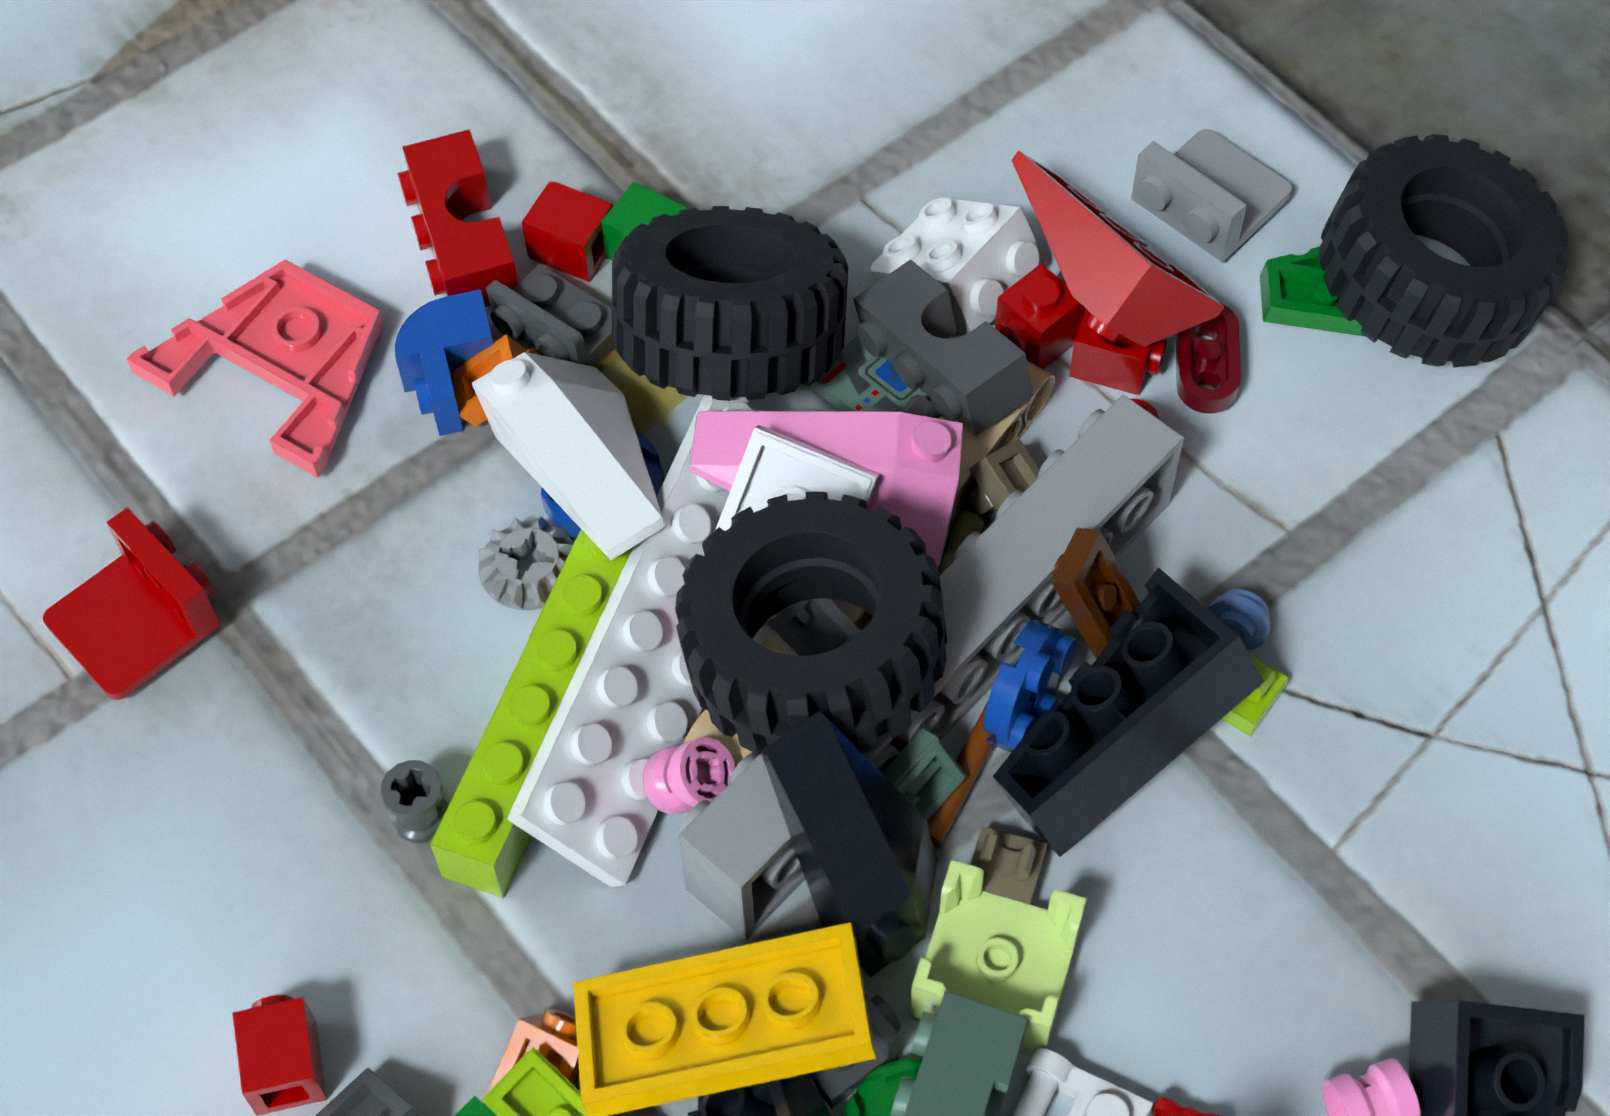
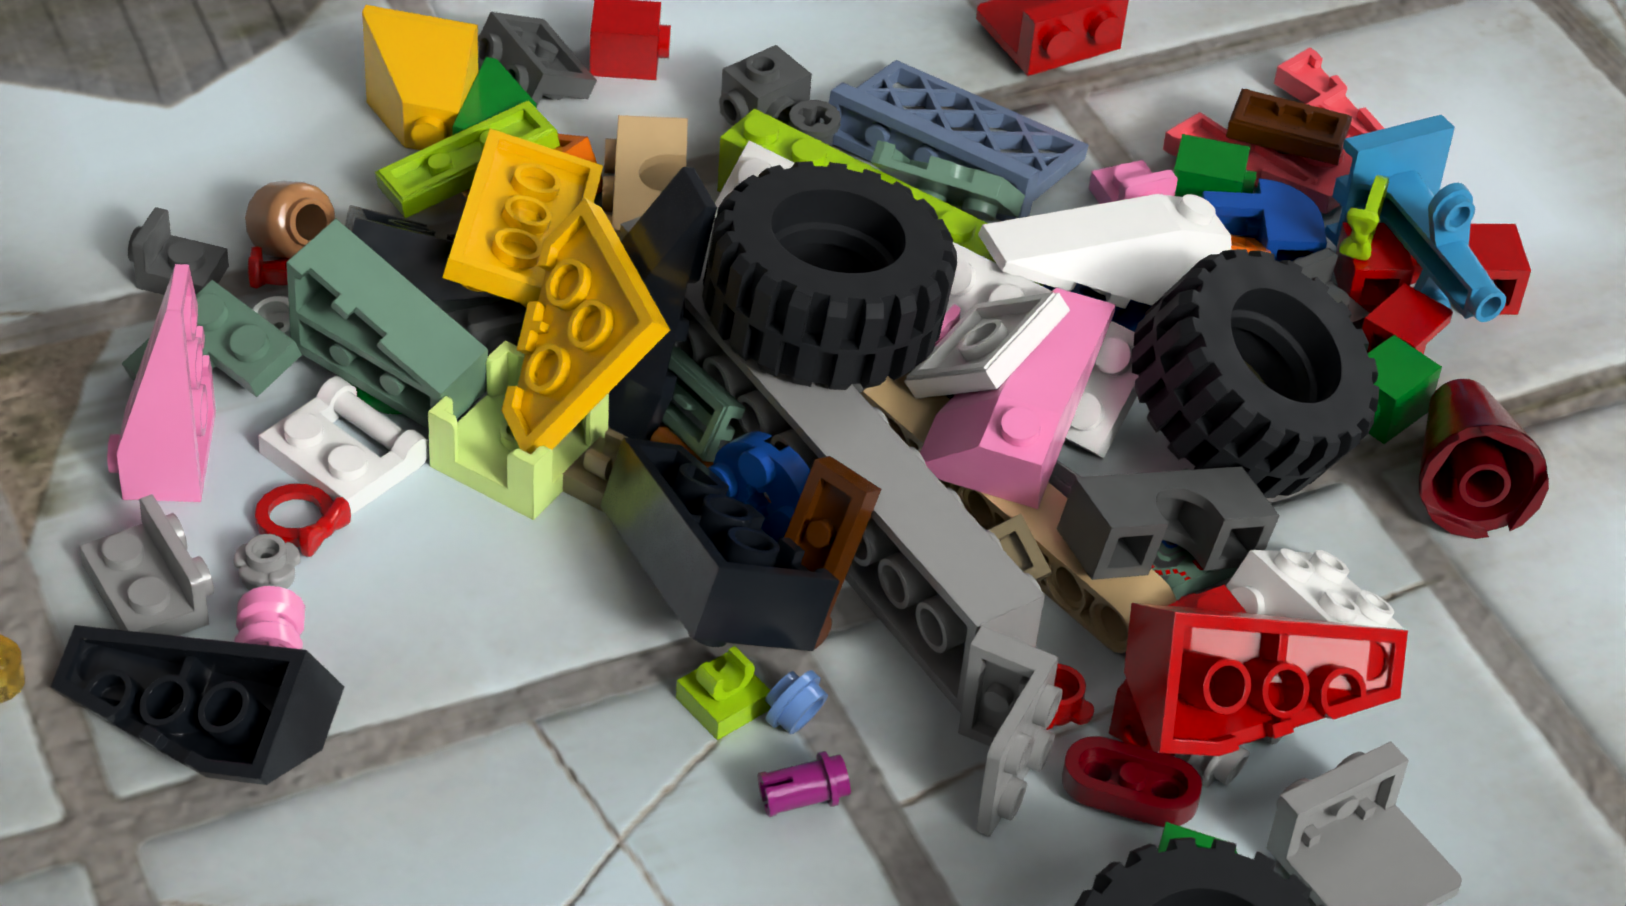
camera: 100 degrees right, 15 degrees down
(298, 345) = (1289, 126): none -> reddish brown plate
(362, 863) = (763, 82): none -> dark grey brick
(378, 418) = (1212, 166): none -> green brick
(400, 237) = (1422, 217): none -> dark azure piece
(408, 488) = (1130, 181): none -> bright pink bracket
(409, 671) = (877, 113): none -> sand blue fence
(482, 635) = (975, 190): none -> sand green wing
(484, 229) = (1364, 222): none -> lime piece
(515, 970) = (644, 163): none -> tan arch
(723, 154) = (1478, 463): none -> dark red cone
(922, 877) = (581, 332): none -> yellow plate
(1238, 423) = (1008, 707): none -> light grey bracket
(1324, 593) = (804, 784): none -> magenta pin

